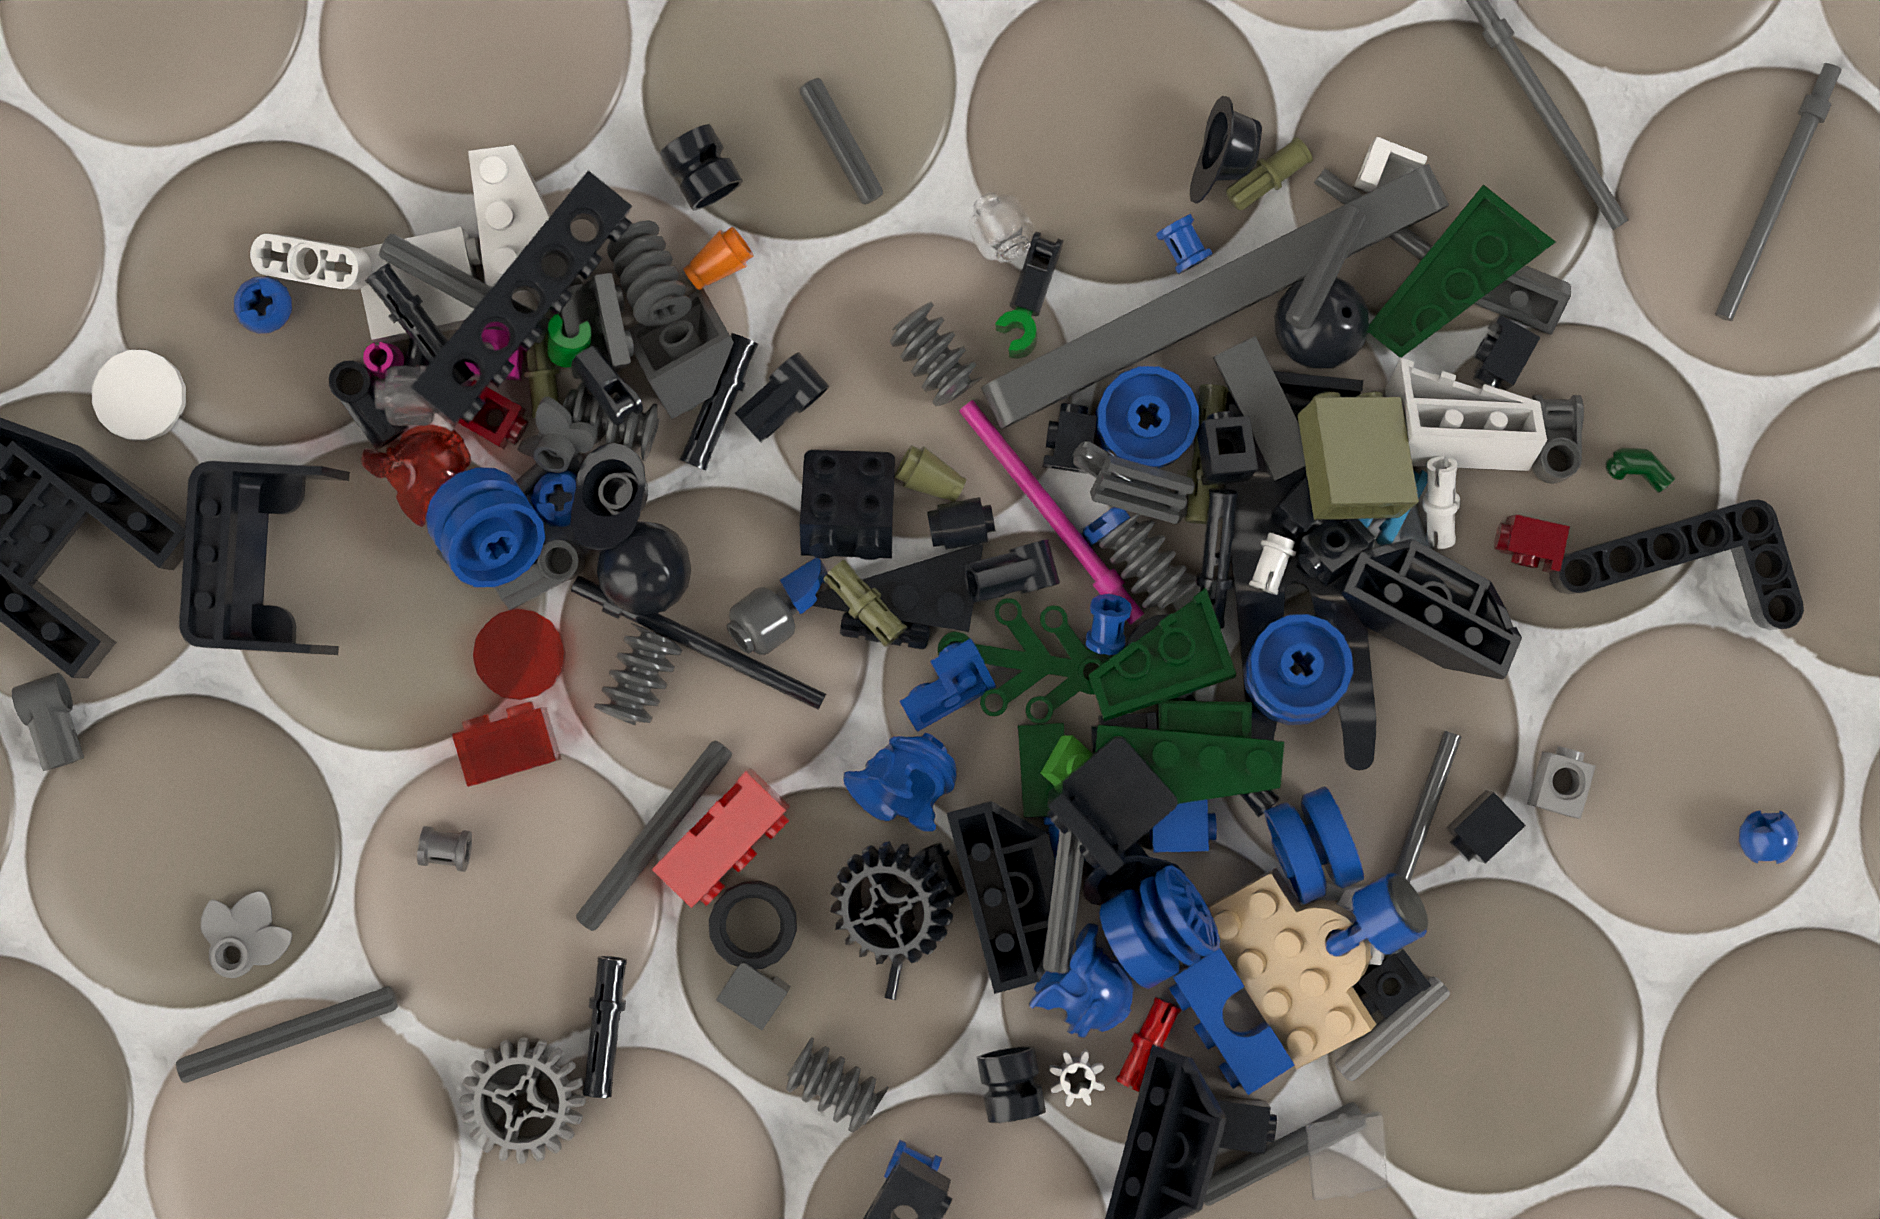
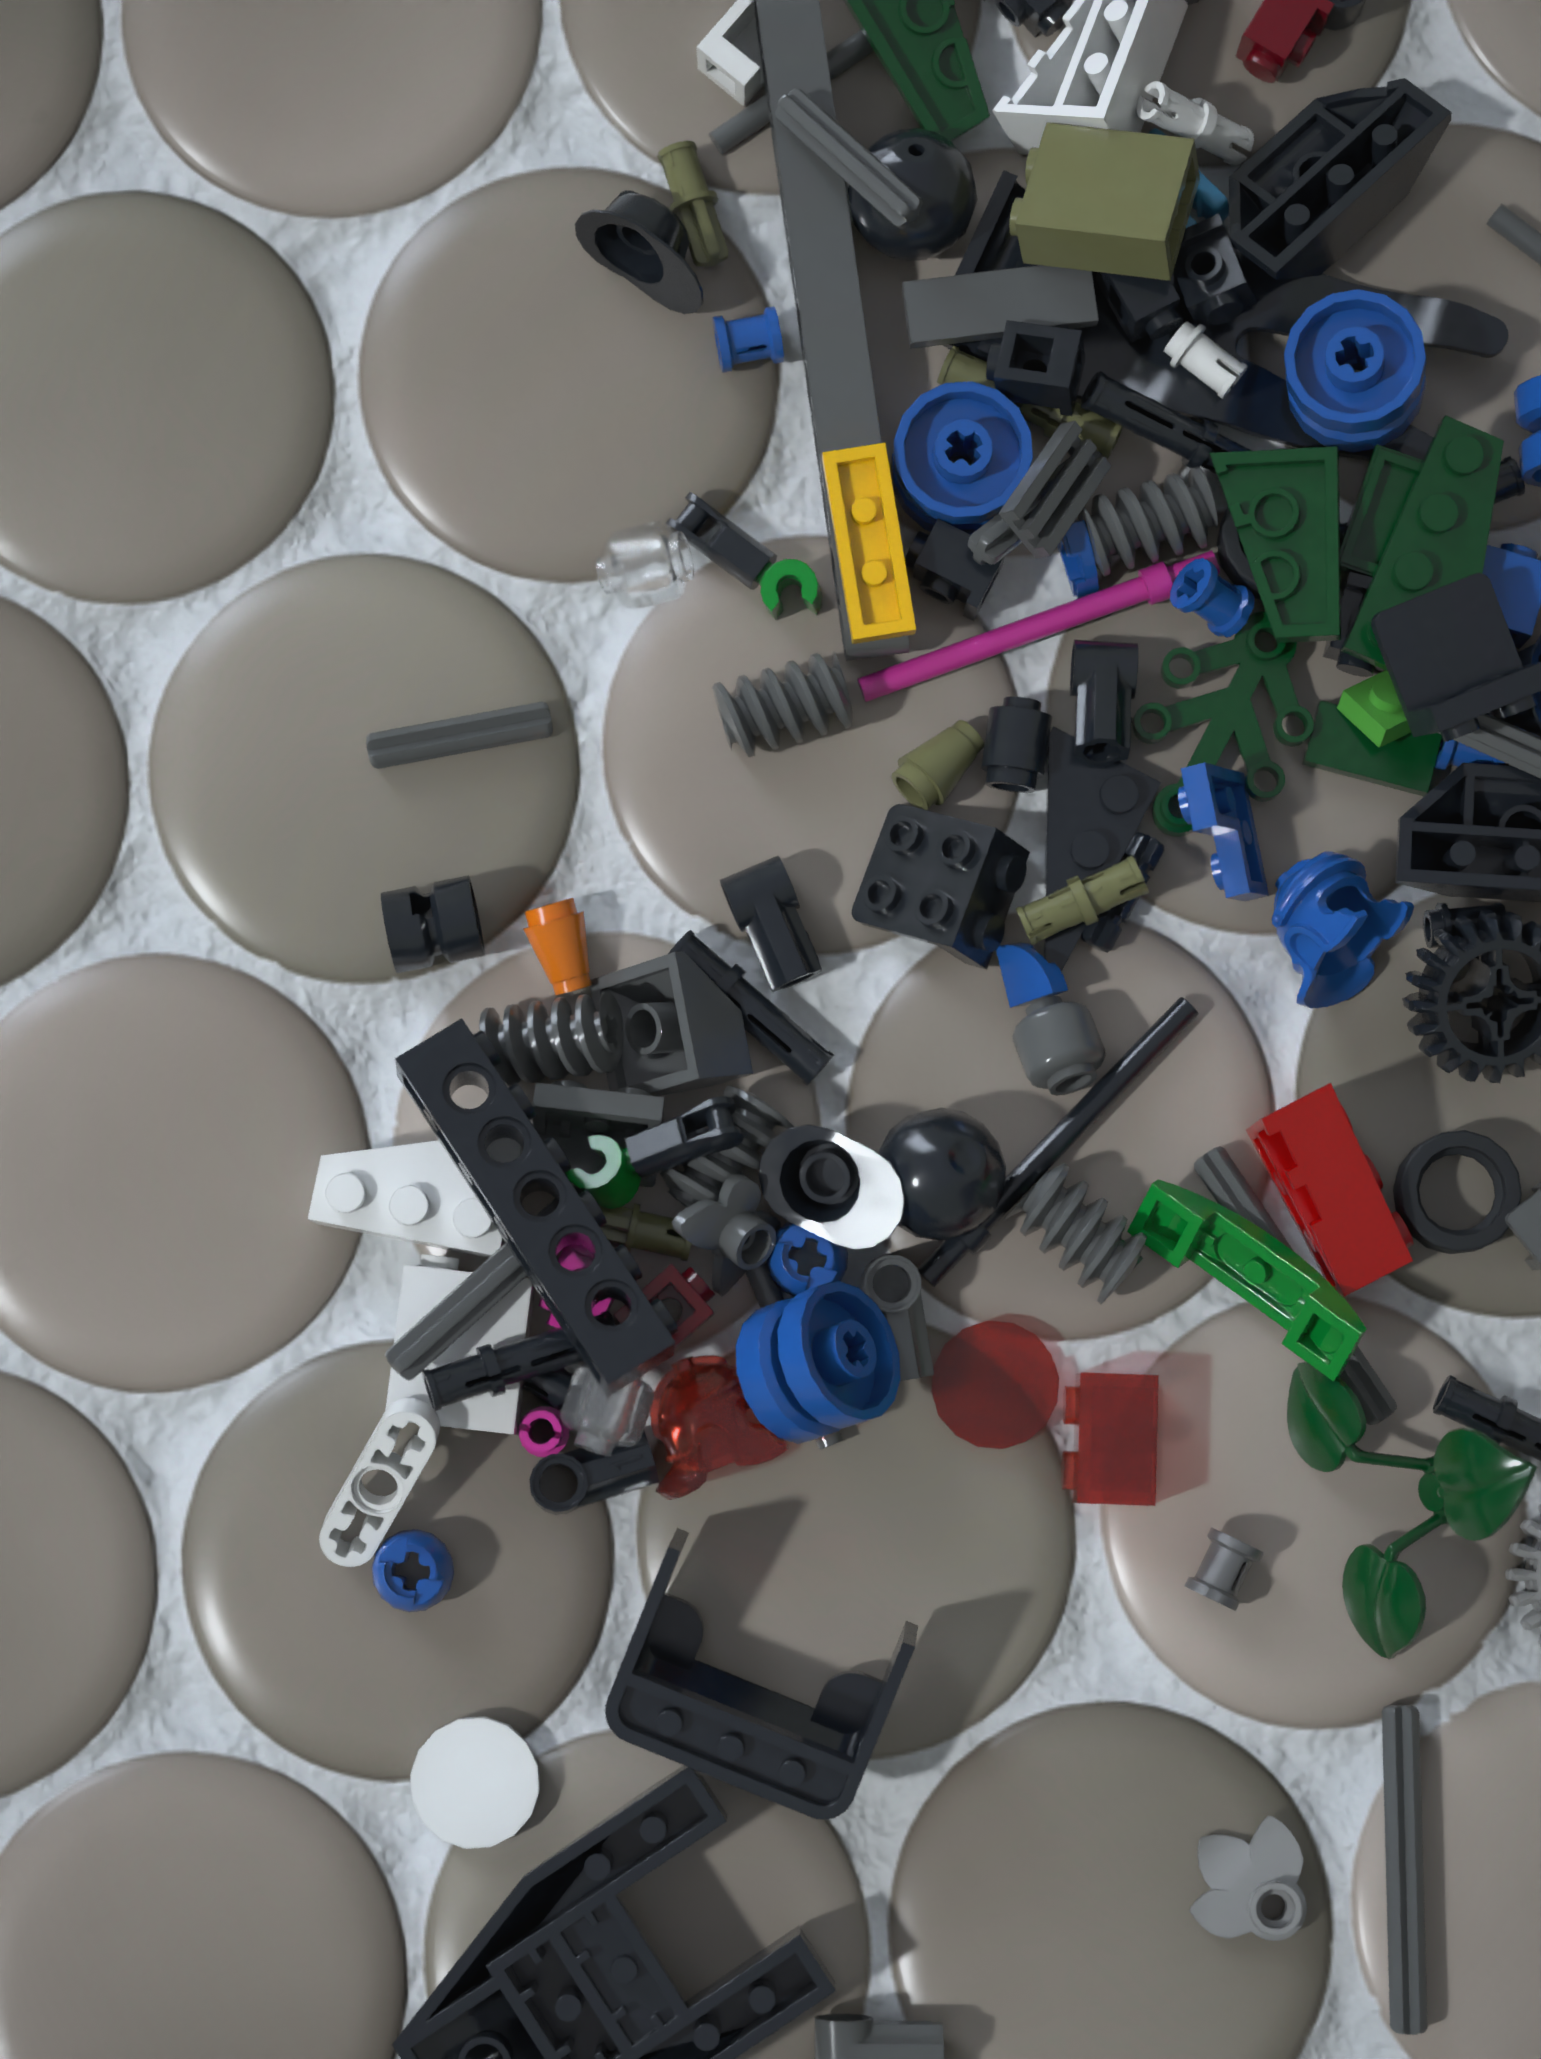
camera: 70 degrees left, 5 degrees down
(549, 987) = (1466, 1484): none -> dark green plant
(654, 805) = (1255, 1267): none -> green slope
(1060, 373) = (868, 543): none -> yellow plate

